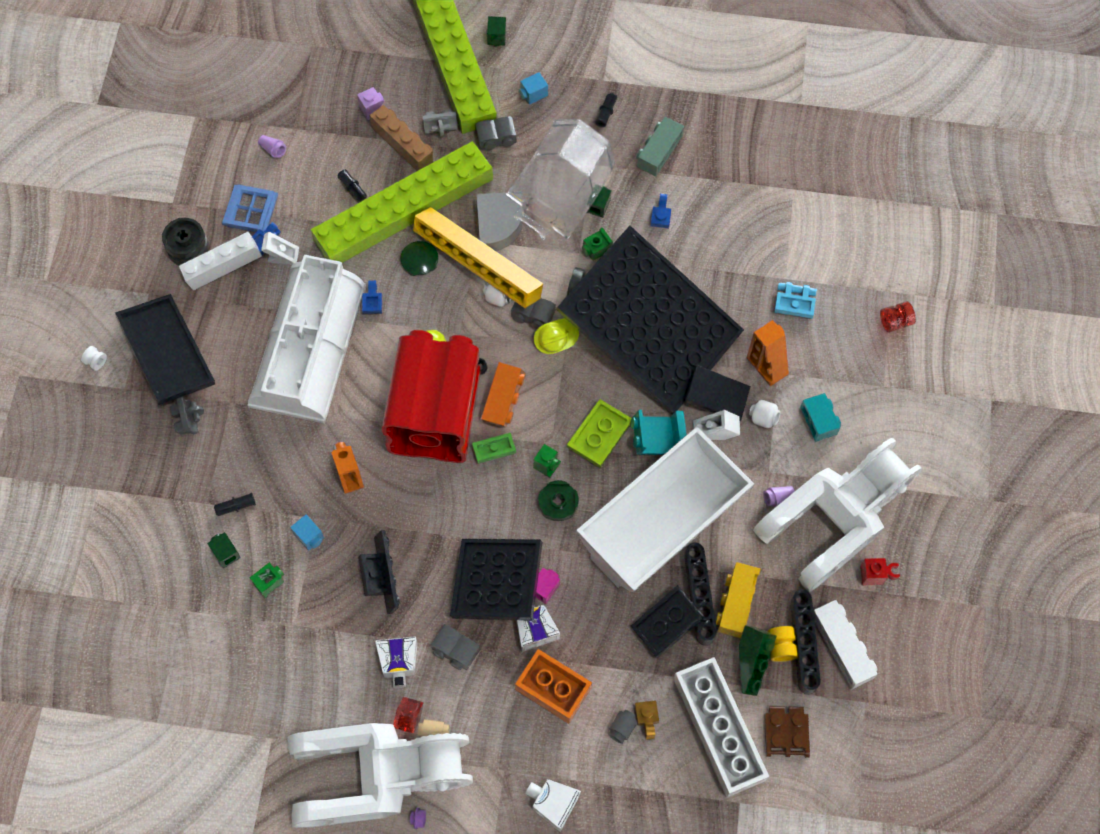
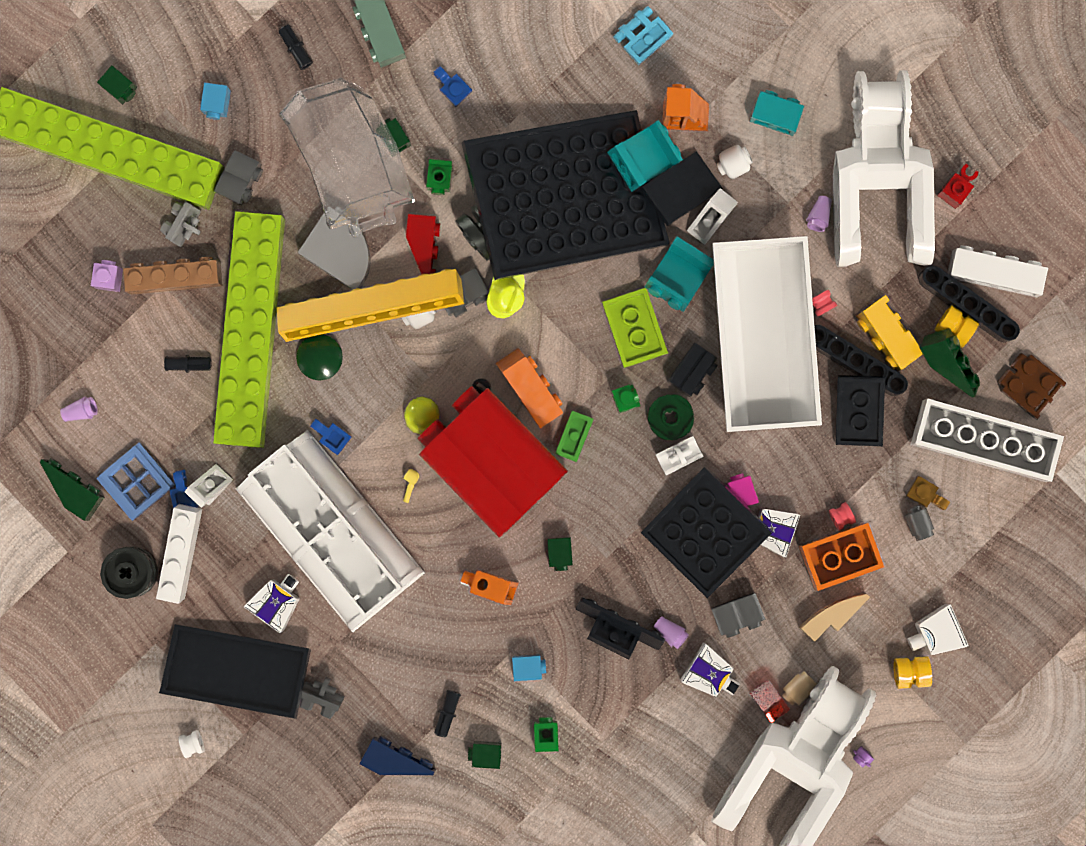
camera: 45 degrees left, 20 degrees up
(172, 486) = (389, 760): none -> dark blue slope
(213, 177) = (73, 494): none -> dark green slope
(231, 342) = (275, 603): none -> torso
(384, 369) = (412, 477): none -> light yellow hand
(405, 496) = (560, 553): none -> dark green brick
(406, 613) = (673, 633): none -> lavender cone
(507, 715) = (833, 615): none -> tan slope
(509, 804) = (912, 672): none -> yellow wheel
(536, 523) = (679, 455): none -> white hips
(548, 262) = (421, 238): none -> red slope
(583, 666) = (842, 516): none -> coral wheel
(600, 489) = (692, 370): none -> black brick
(718, 353) = (645, 155): none -> teal panel
(720, 541) = (823, 303): none -> coral wheel

